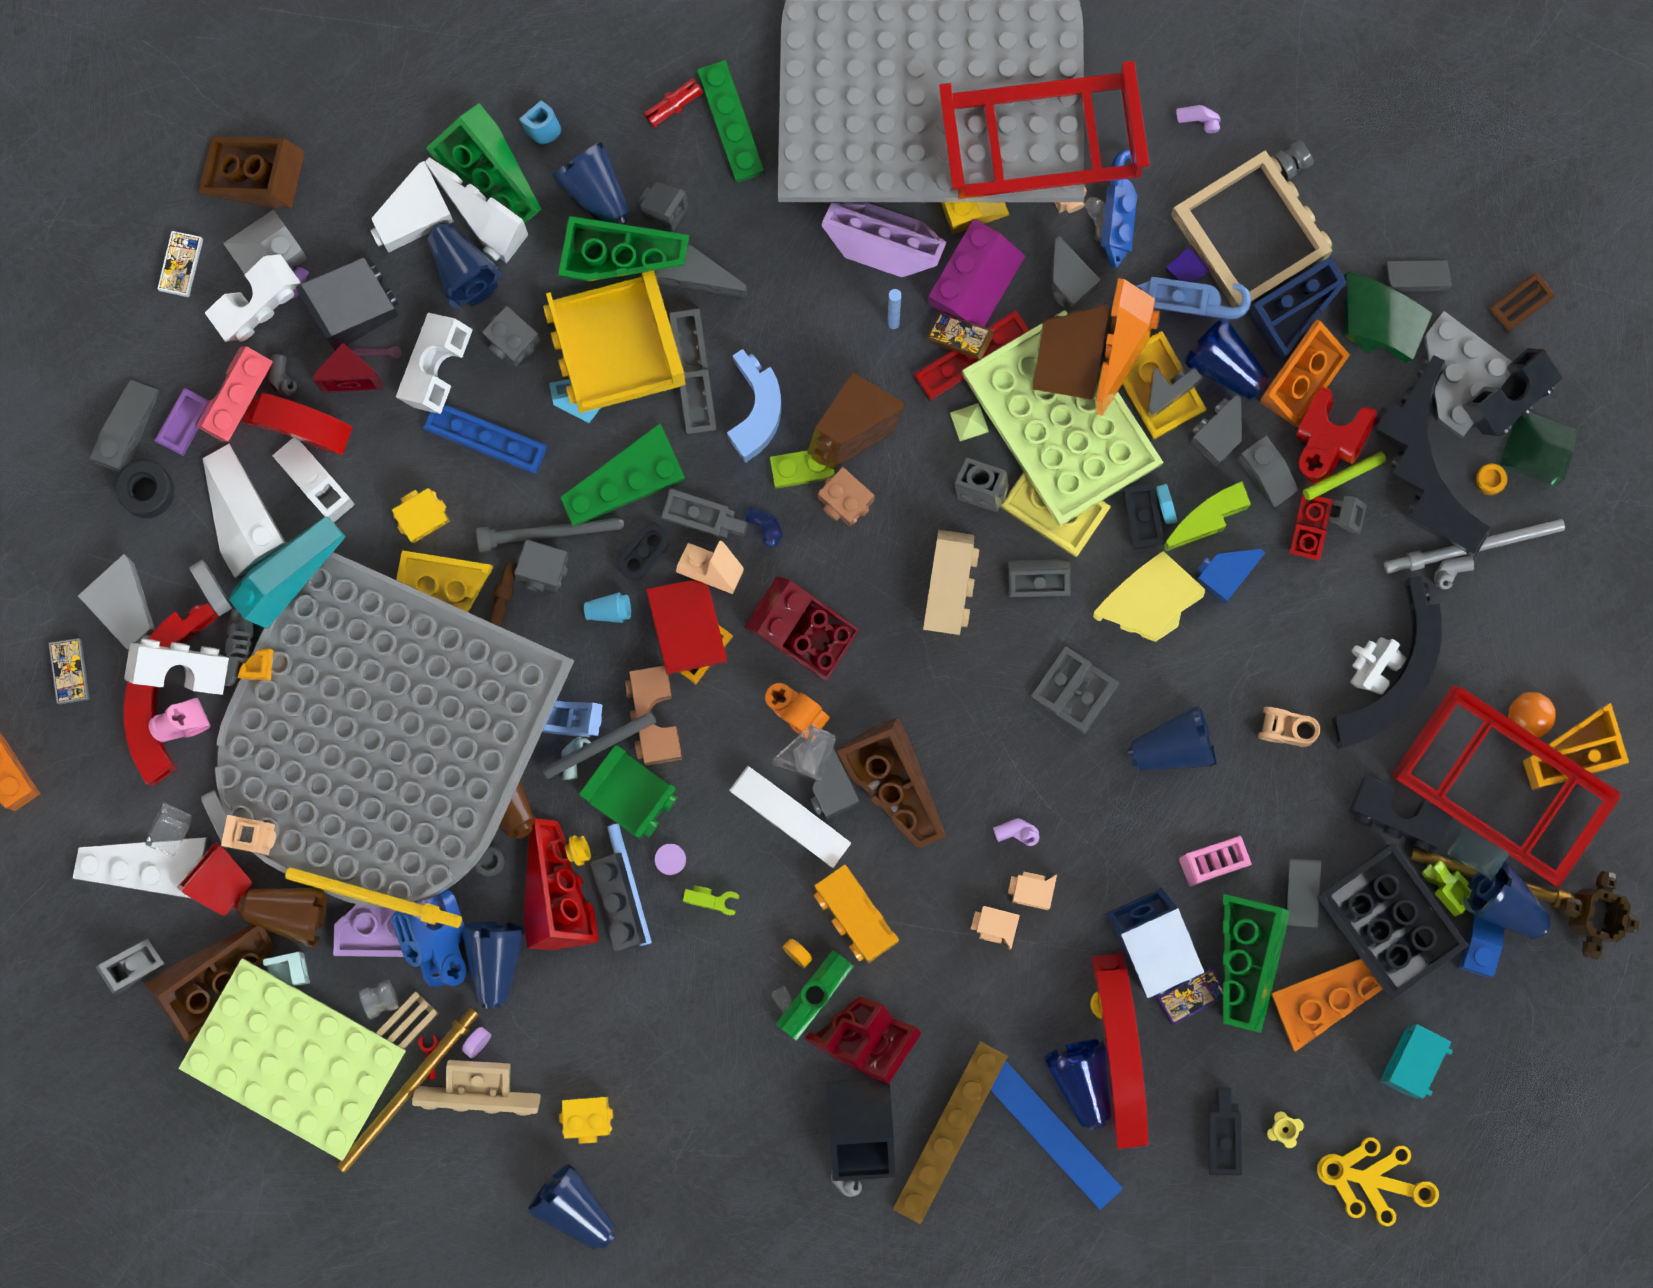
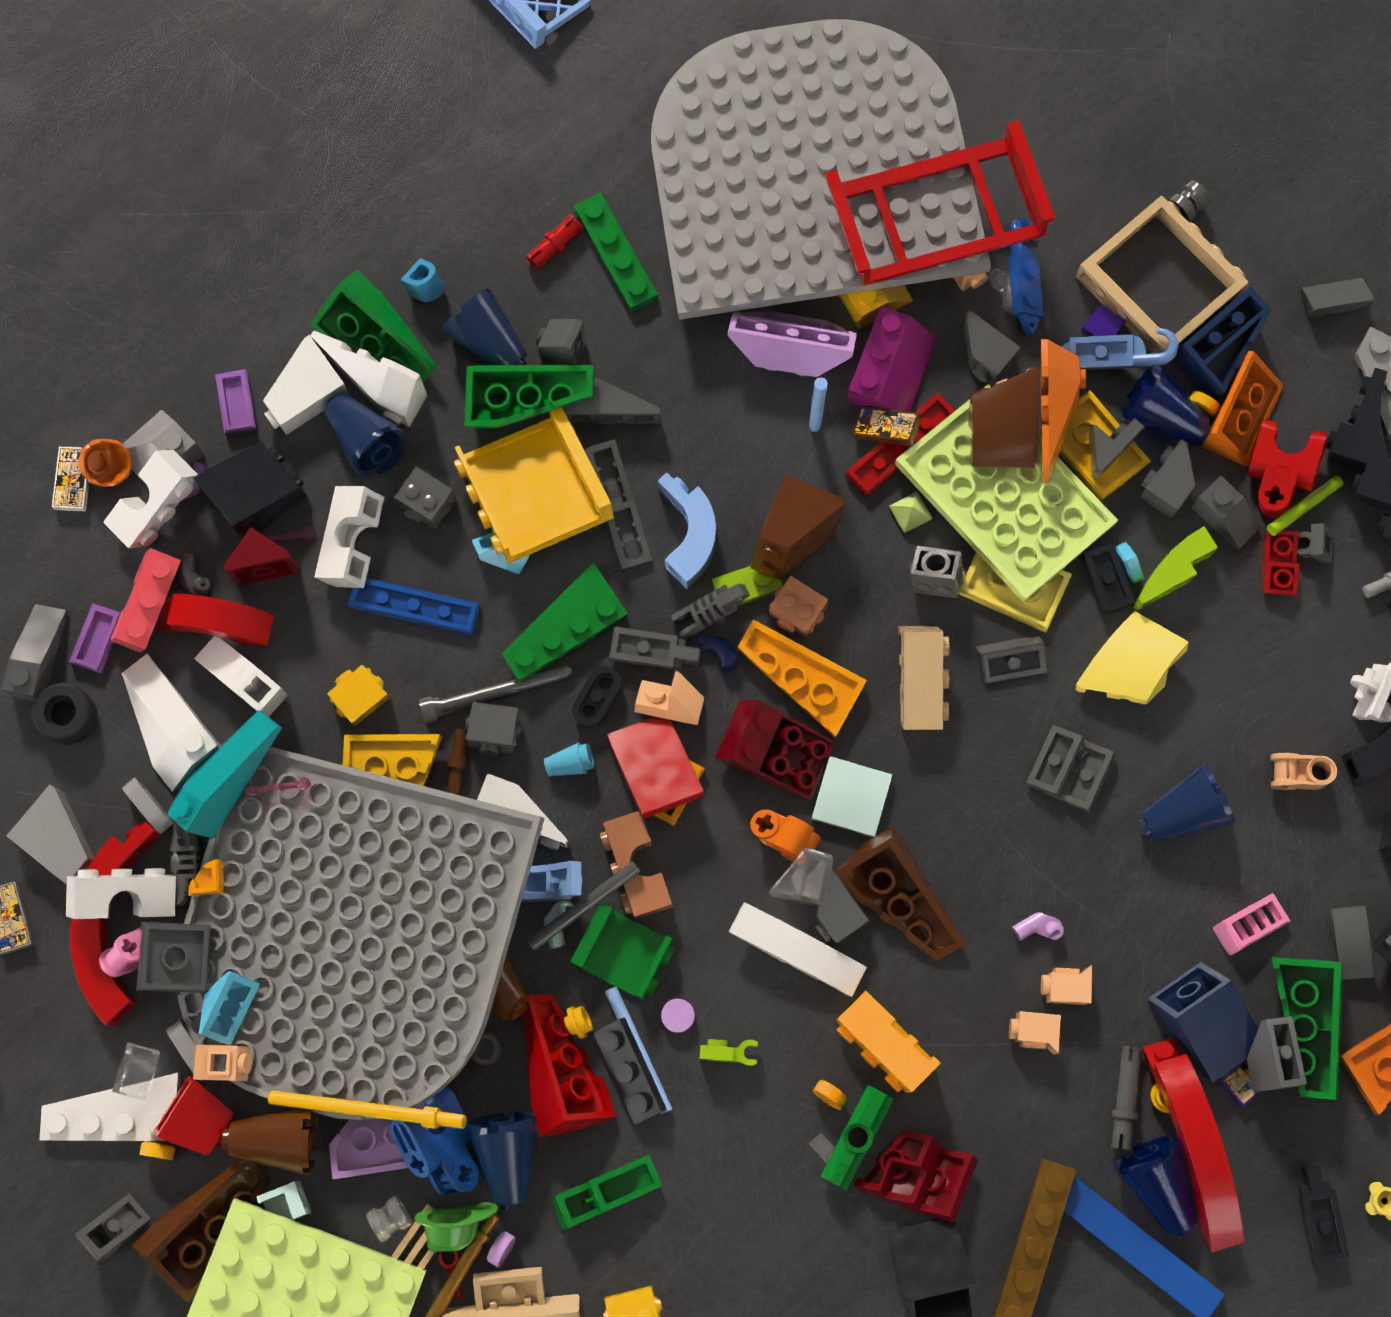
camera: 10 degrees left, 5 degrees down
(178, 904) = (157, 1150): none -> yellow tile
(213, 254) = (105, 462): none -> orange hair
(217, 732) = (173, 957): none -> dark grey tile
(252, 170) = (135, 373): reddish brown slope -> none
(259, 784) = (226, 1007): none -> medium azure slope
(345, 213) = (236, 402): none -> medium lavender tile
(358, 591) = (303, 783): none -> clear pink hinge
(436, 1015) = (453, 1227): none -> bright green piece
(547, 633) = (510, 795): none -> white slope
(578, 1007) = (605, 1192): none -> green slope
(763, 486) = (710, 608): none -> dark grey hinge
(845, 567) = (806, 677): none -> light orange wing
(865, 684) = (851, 797): none -> light aqua tile
(1068, 999) = (1125, 1112): none -> dark grey pin
(1202, 114) = (1089, 173): lavender arm -> none
(1208, 983) = (1275, 1056): none -> dark grey slope
(1227, 572) = (1206, 622): blue slope -> none
(1268, 362) = (1205, 403): none -> yellow tile
(1383, 318) = (1312, 341): dark green slope -> none

